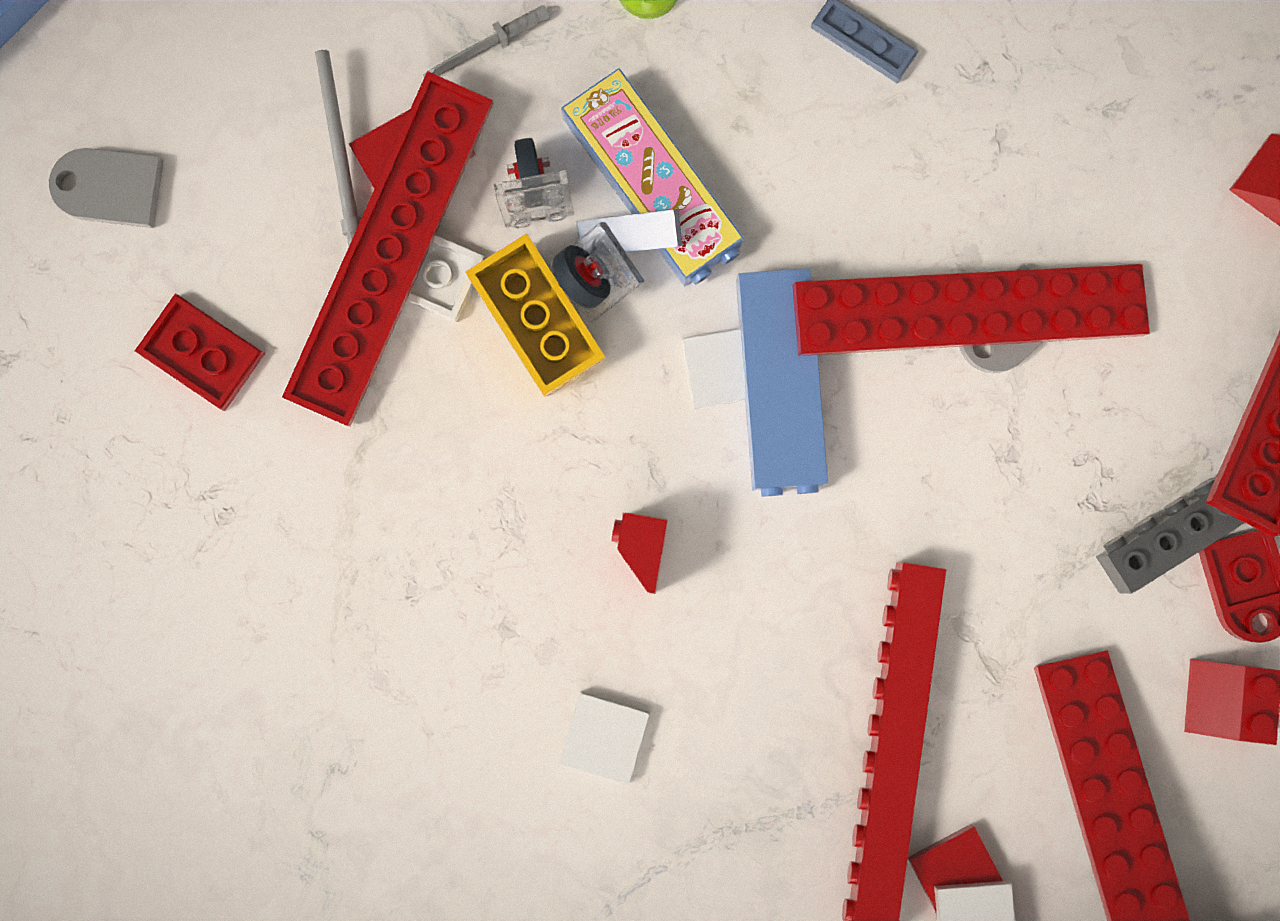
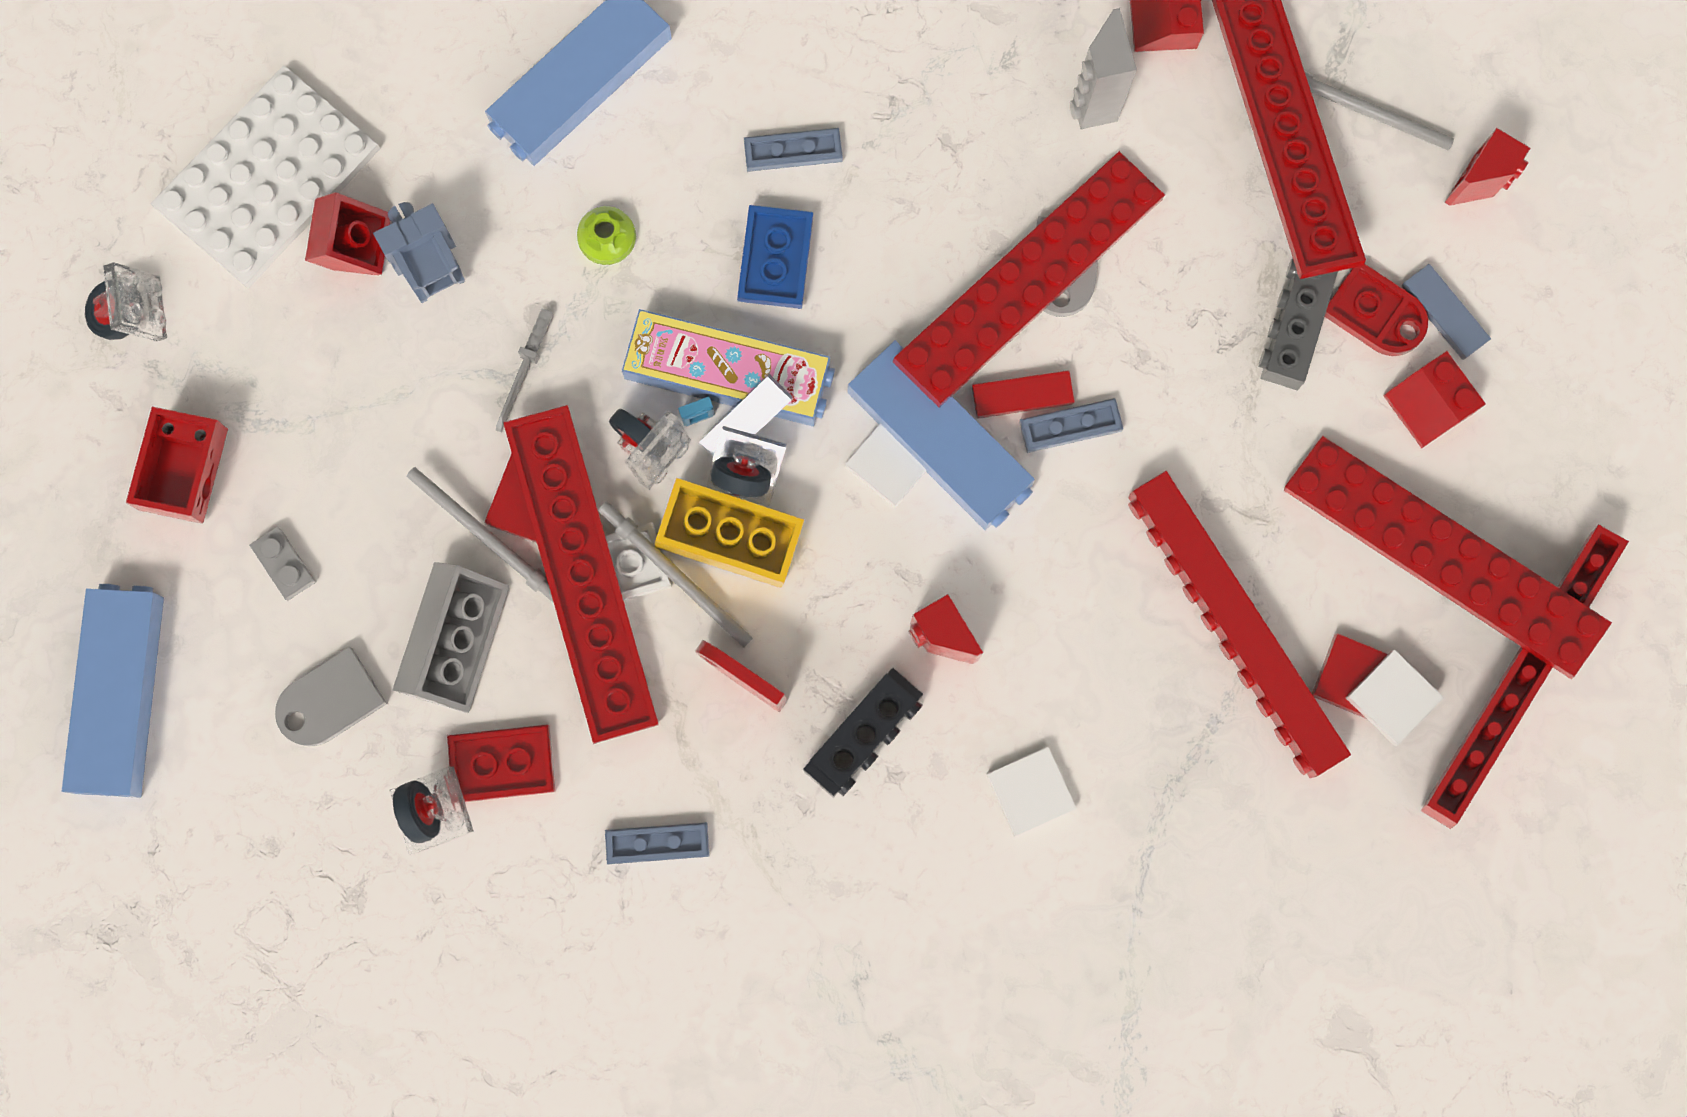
camera: 45 degrees left, 5 degrees down
(103, 340) = (431, 810): none -> plate
(164, 45) = (282, 563): none -> light grey plate
(242, 216) = (451, 637): none -> light grey slope
(268, 521) = (657, 843): none -> sand blue tile
(445, 443) = (741, 675): none -> red tile
(449, 573) = (890, 688): none -> black brick
(456, 245) = (628, 530): none -> light grey bar
(596, 193) = (696, 411): none -> dark azure tile
(771, 117) = (775, 257): none -> blue plate
(881, 403) = (1023, 394): none -> red tile
(899, 463) = (1071, 425): none -> sand blue tile
(1188, 184) = (1104, 76): none -> light grey slope

